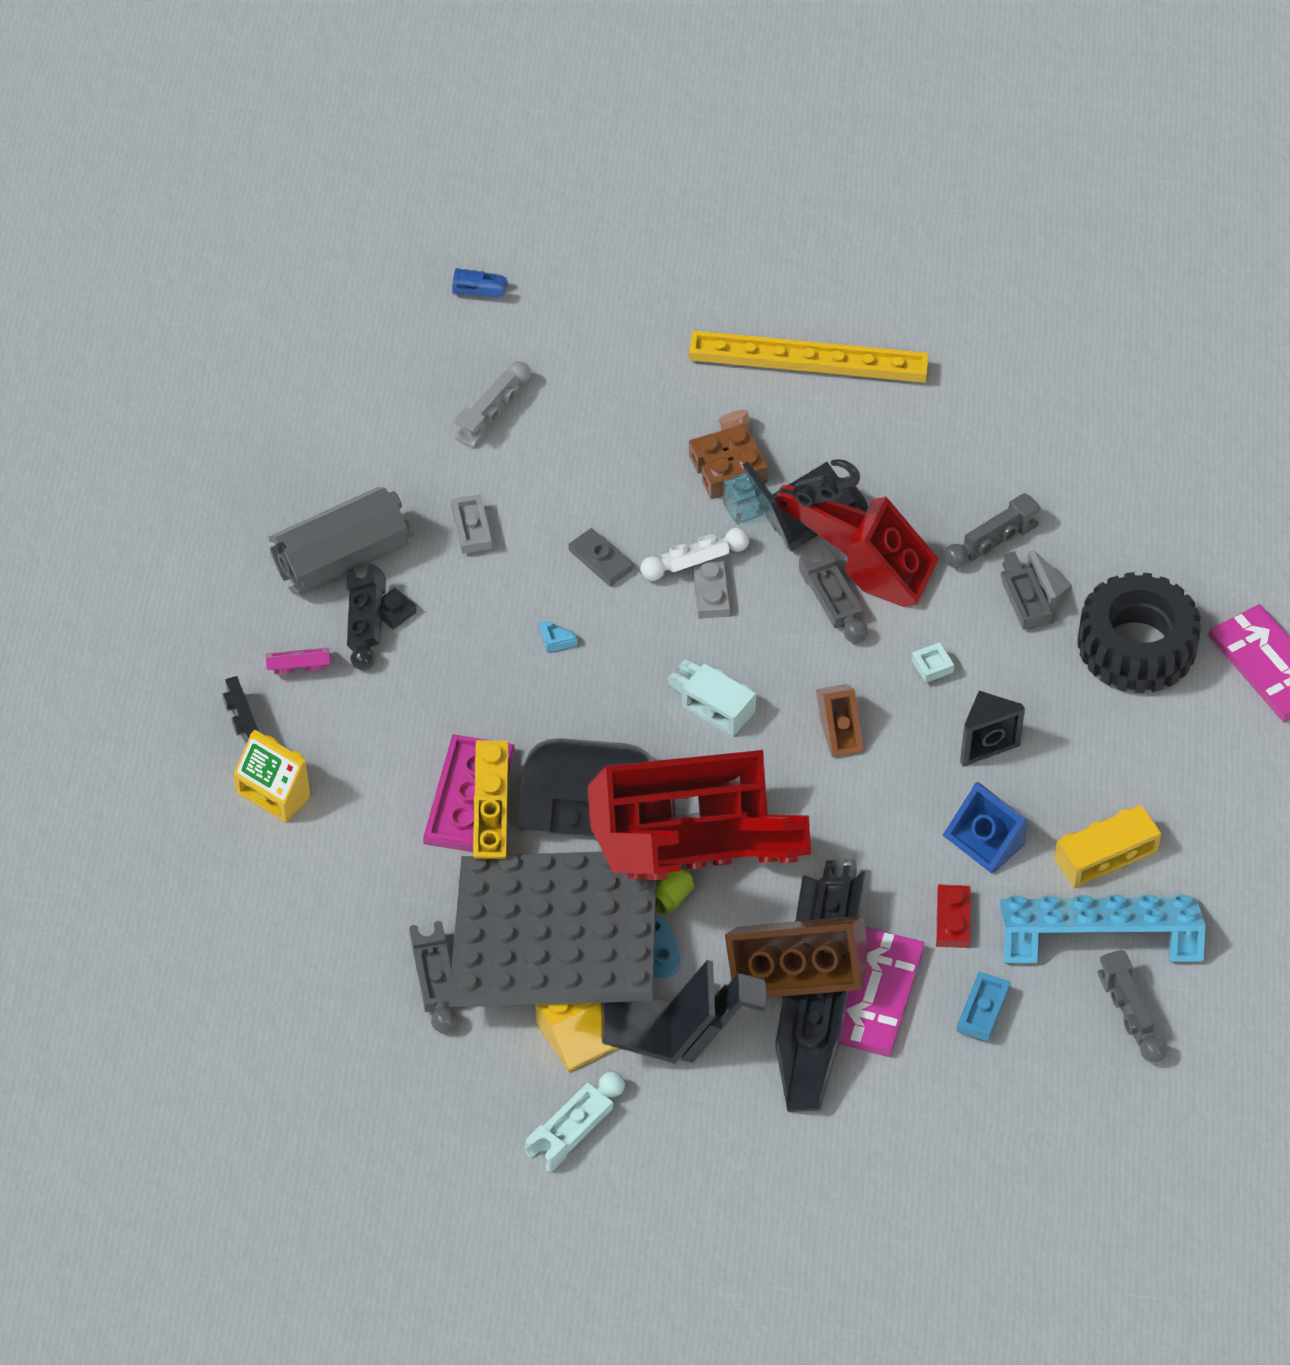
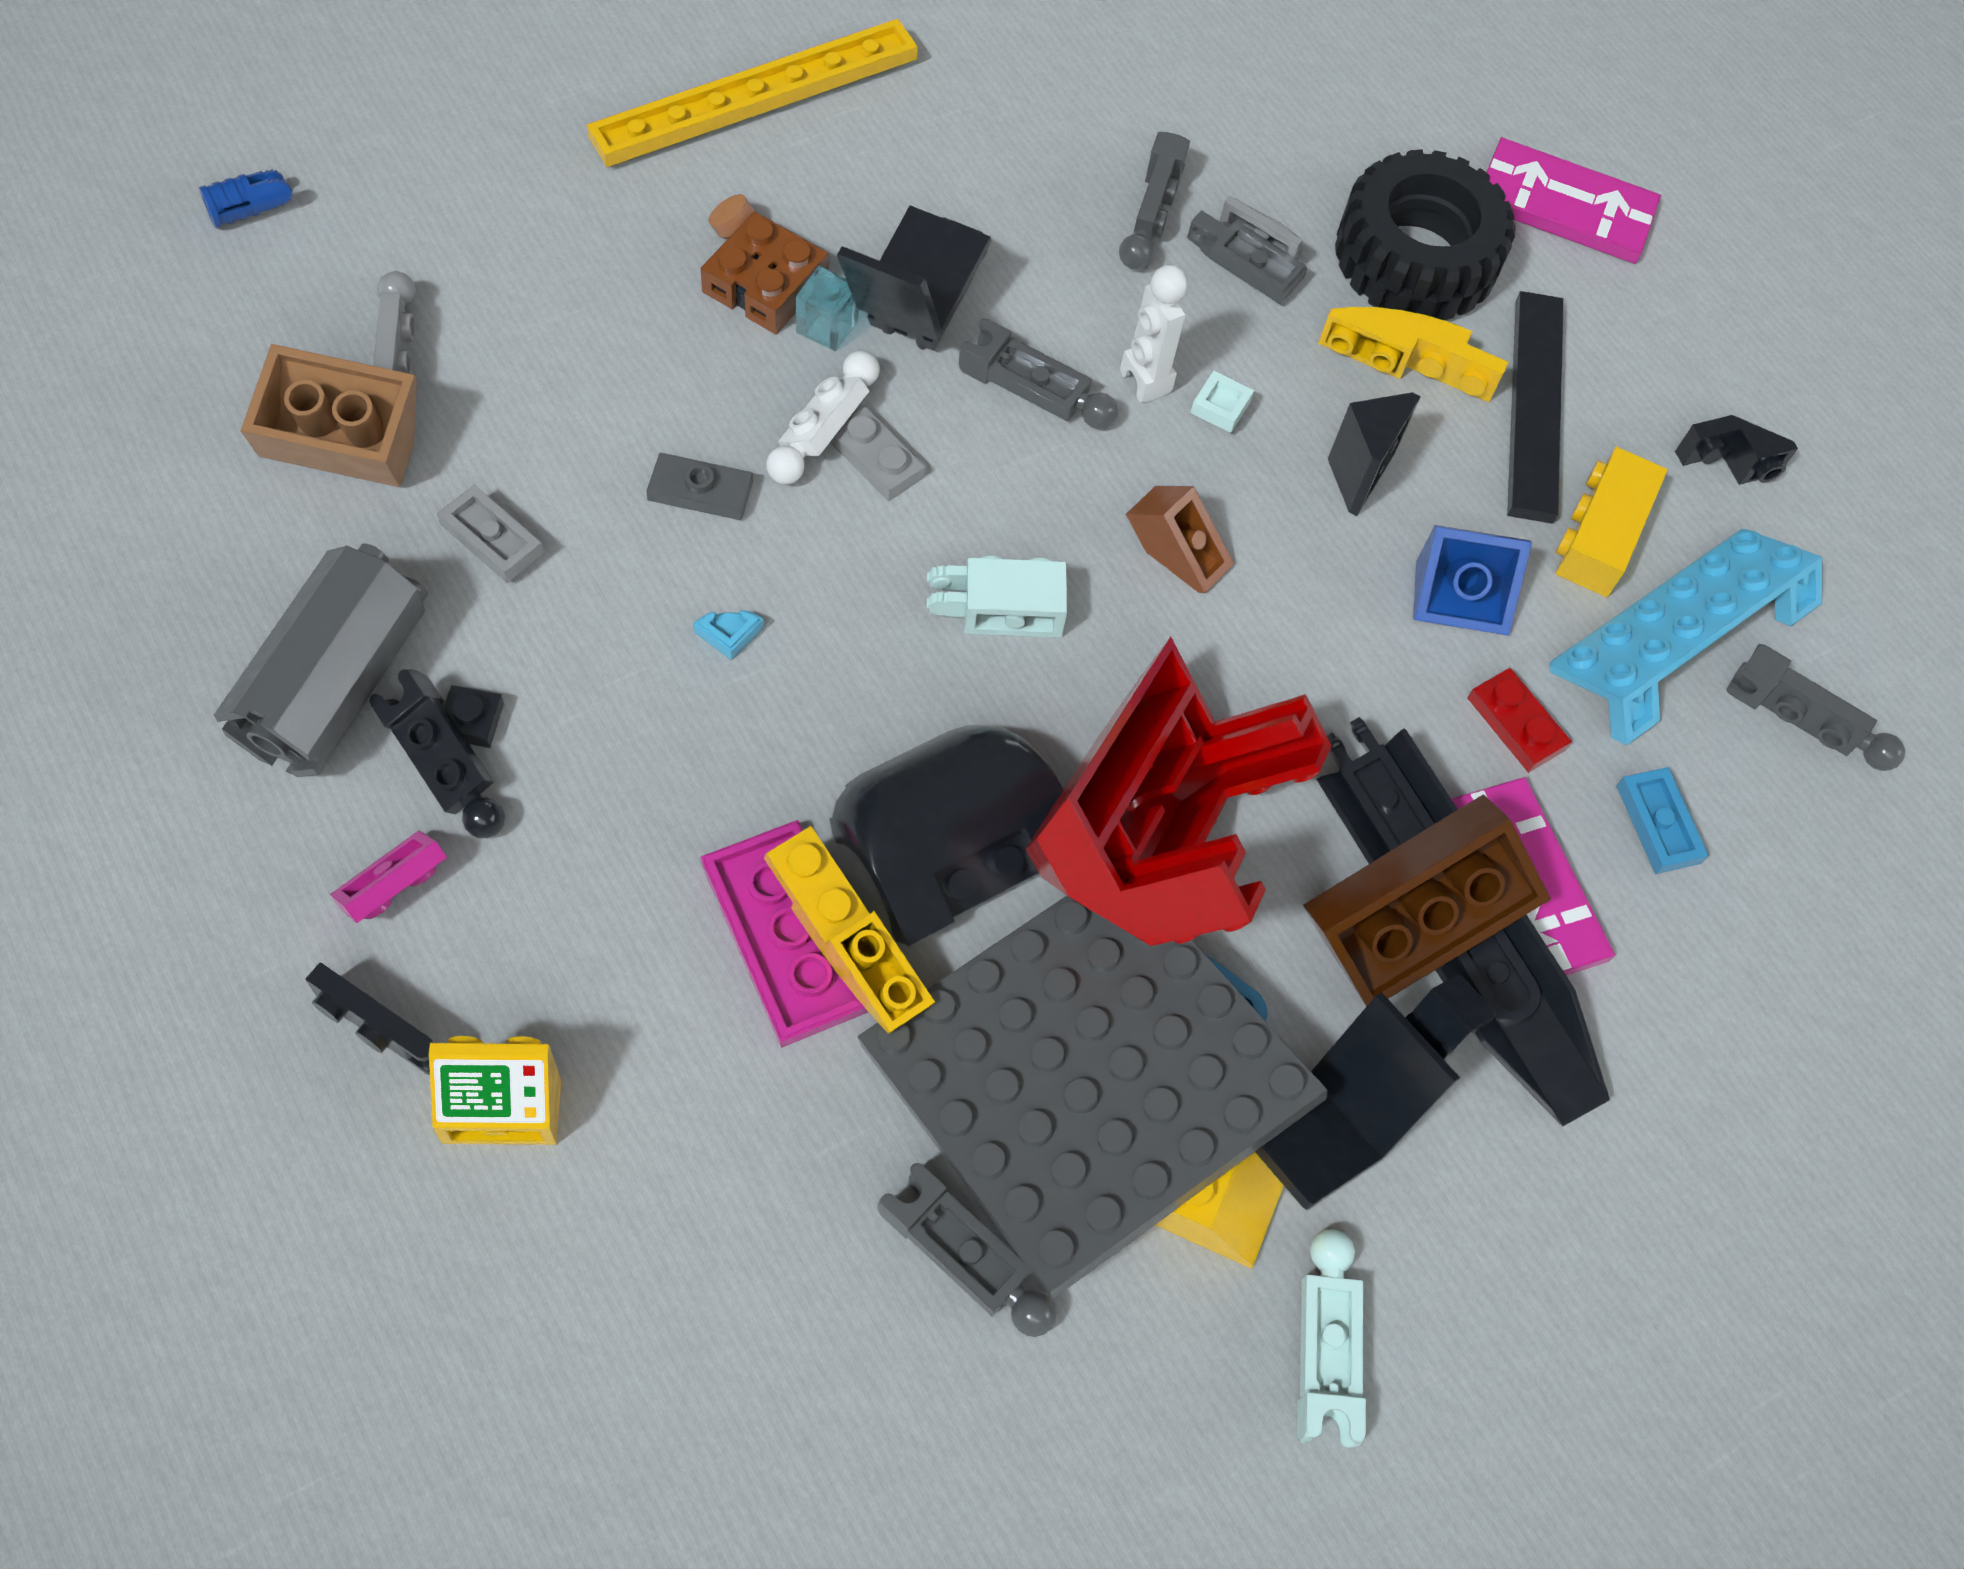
camera: 45 degrees left, 10 degrees up
(433, 422) = (333, 415): none -> medium nougat slope
(880, 544) = (1049, 276): red slope -> none
(903, 614) = (1157, 334): none -> white plate
(1075, 686) = (1403, 339): none -> yellow slope
(1129, 764) = (1536, 408): none -> black tile
(1225, 839) = (1746, 448): none -> black slope

